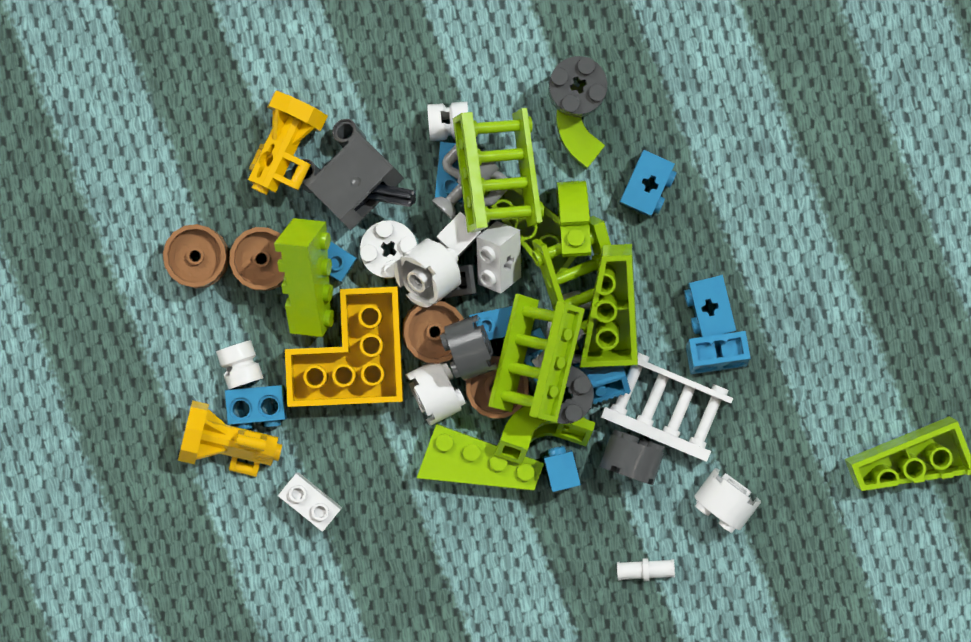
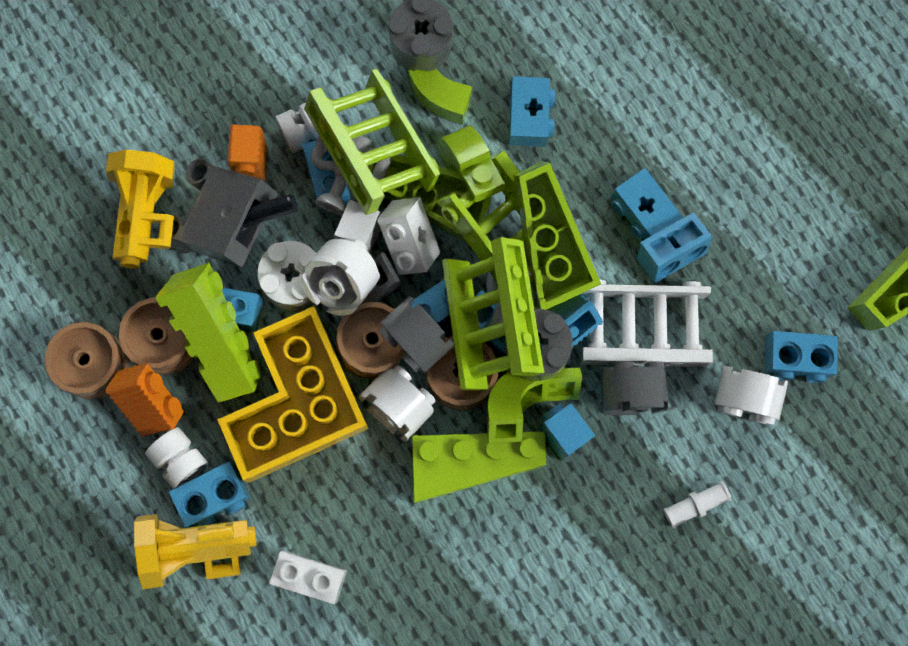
camera: 25 degrees left, 10 degrees down
(232, 309) = (144, 400): none -> orange brick
(391, 133) = (247, 150): none -> orange brick
(788, 478) = (799, 348): none -> dark azure brick

